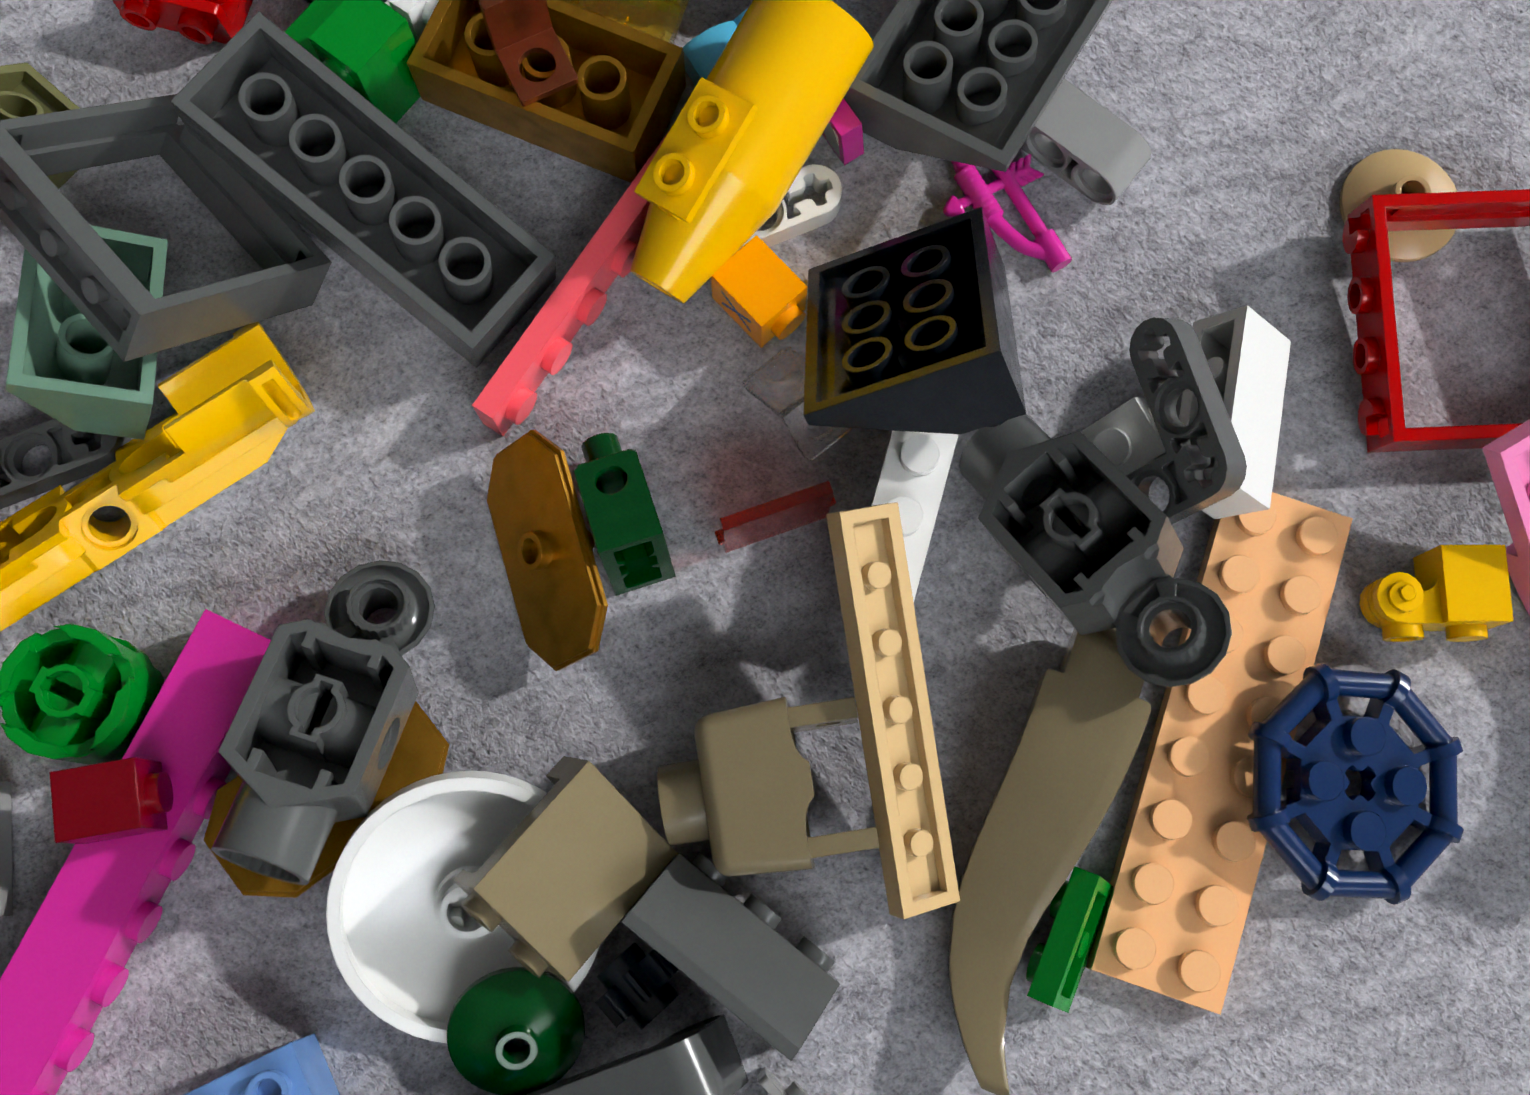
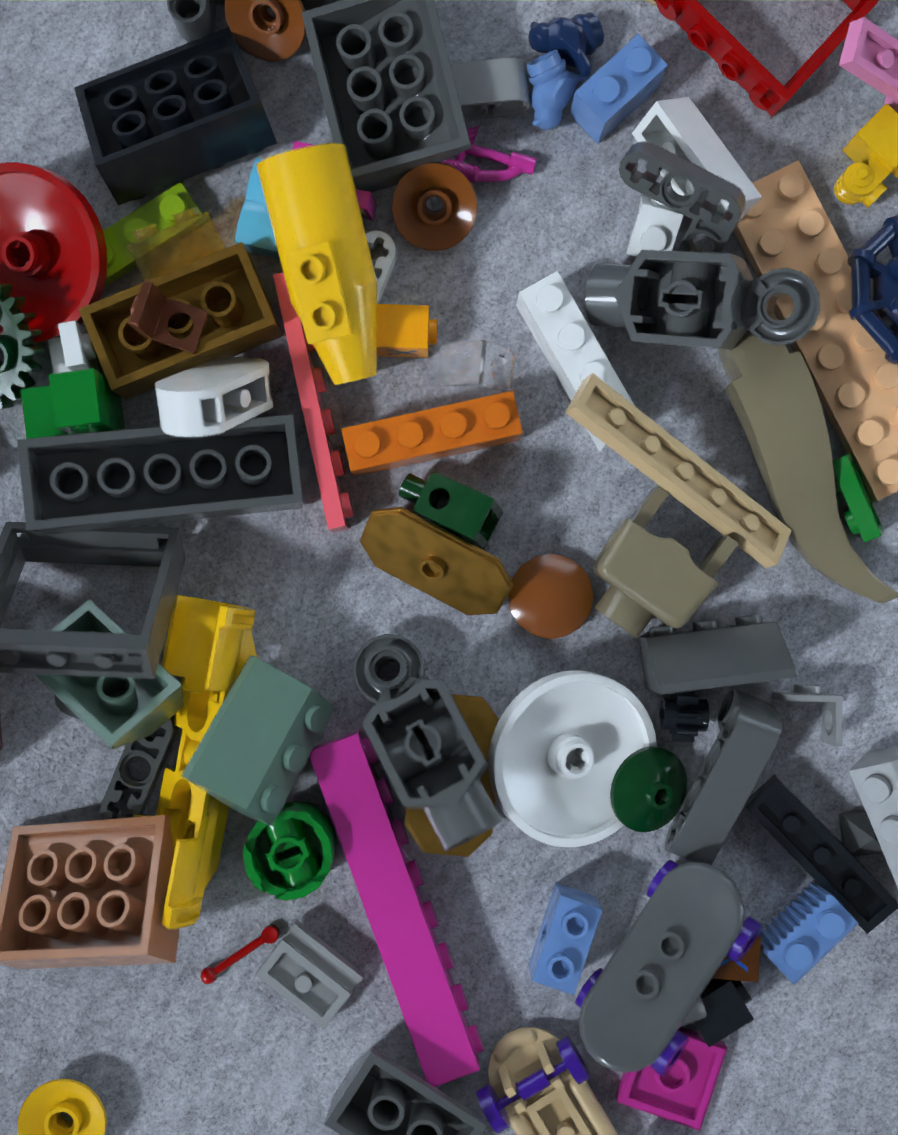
camera: 40 degrees left, 10 degrees up
(110, 800) = (367, 878): dark red brick -> none
(162, 541) = (259, 741): none -> sand green slope
(495, 161) = (214, 396): none -> white brick
(566, 871) = (606, 697): dark tan panel -> none
(631, 711) = (550, 596): none -> dark orange dish
(678, 417) = (432, 434): none -> orange brick
(775, 517) = (528, 438): clear red piece -> none
(901, 174) = (431, 228): none -> dark orange dish
(914, 334) = (509, 279): black slope -> none
(1153, 204) = (551, 88): none -> medium blue animal
(1218, 174) = (571, 37): none -> dark blue animal
(1223, 266) = (618, 88): none -> medium blue brick

